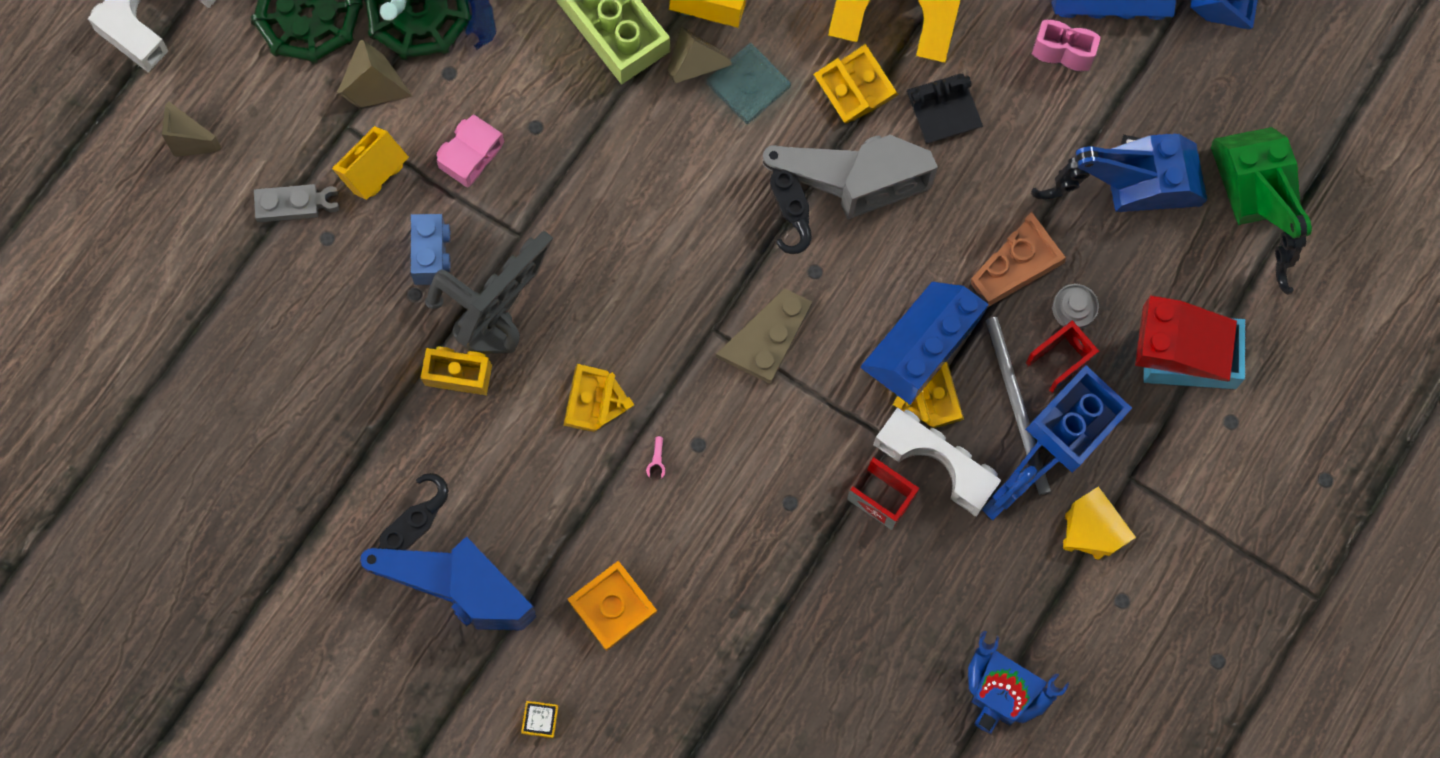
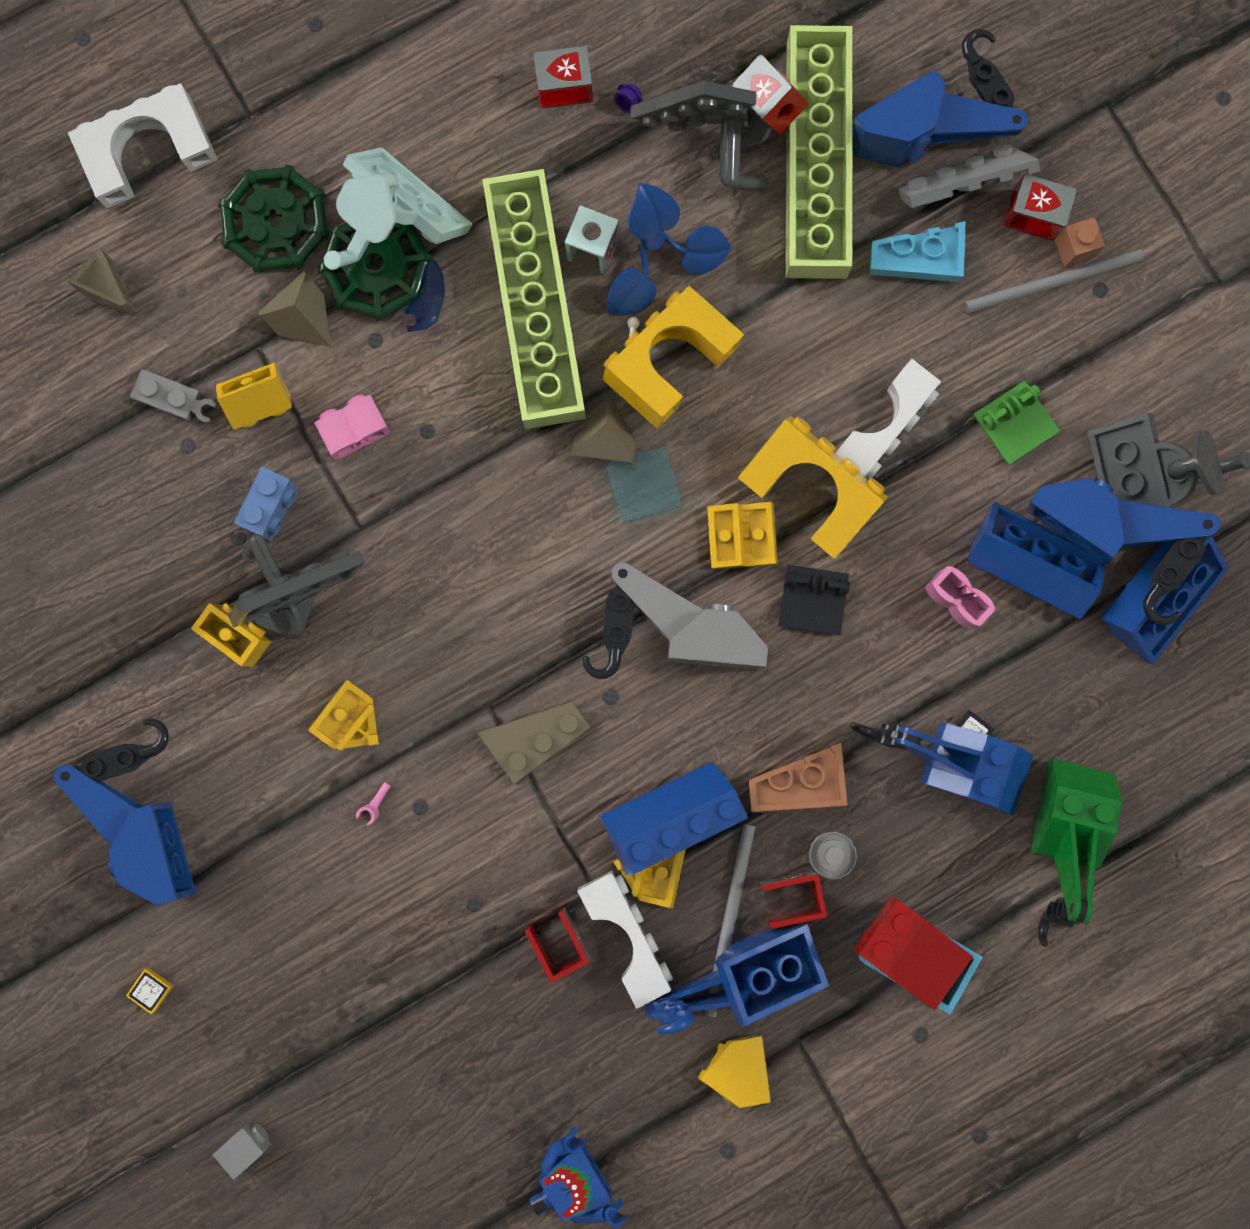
camera: 35 degrees right, 10 degrees up
(612, 605) = (263, 921): light orange plate -> none

